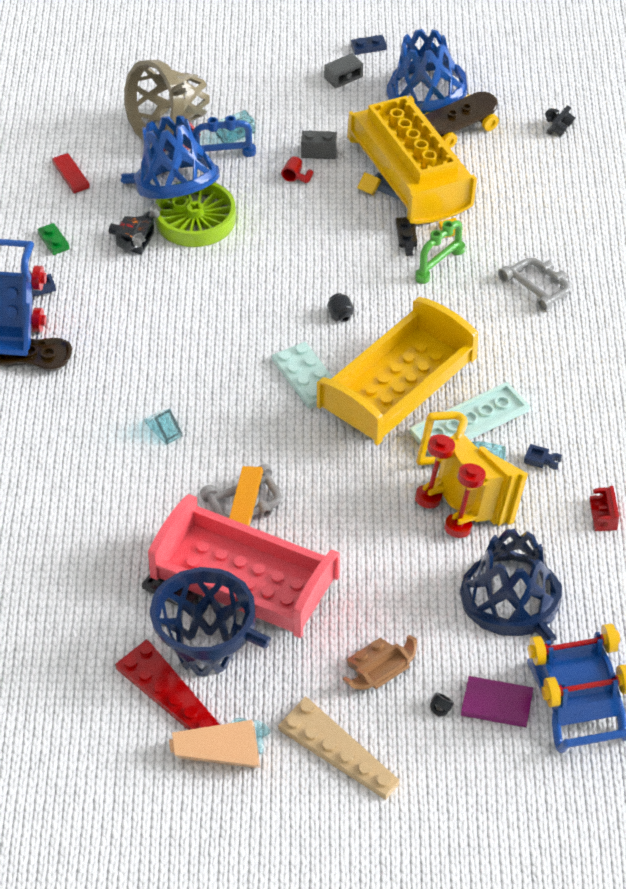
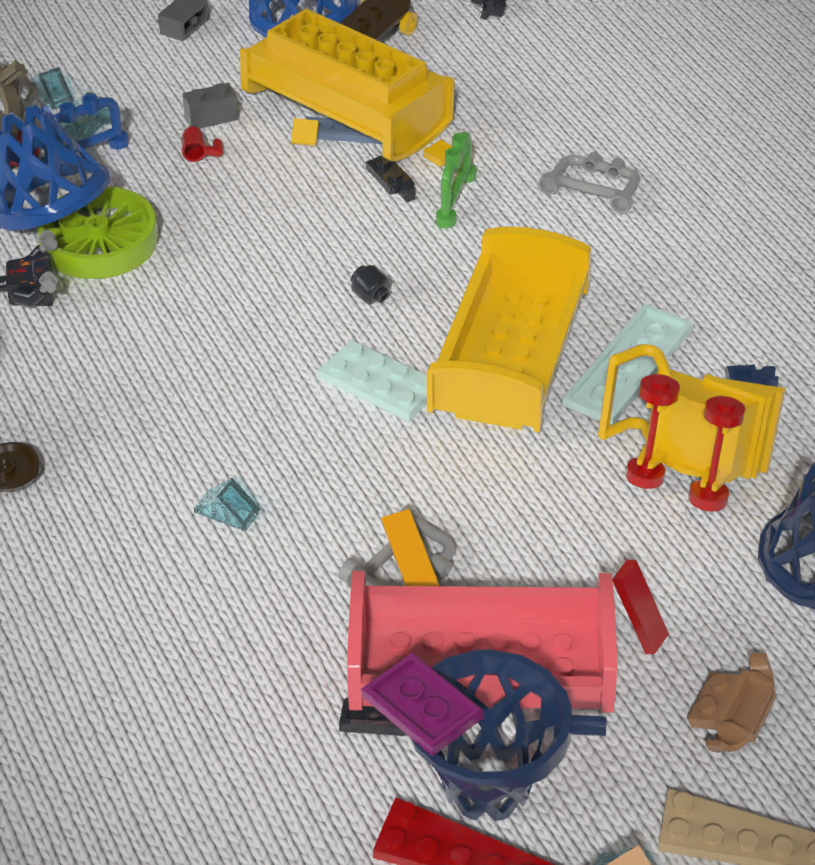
camera: 25 degrees left, 5 degrees down
(167, 588) = (422, 704): none -> magenta tile
(228, 99) = (53, 88): none -> clear light blue slope
(355, 580) = (640, 606): none -> red tile

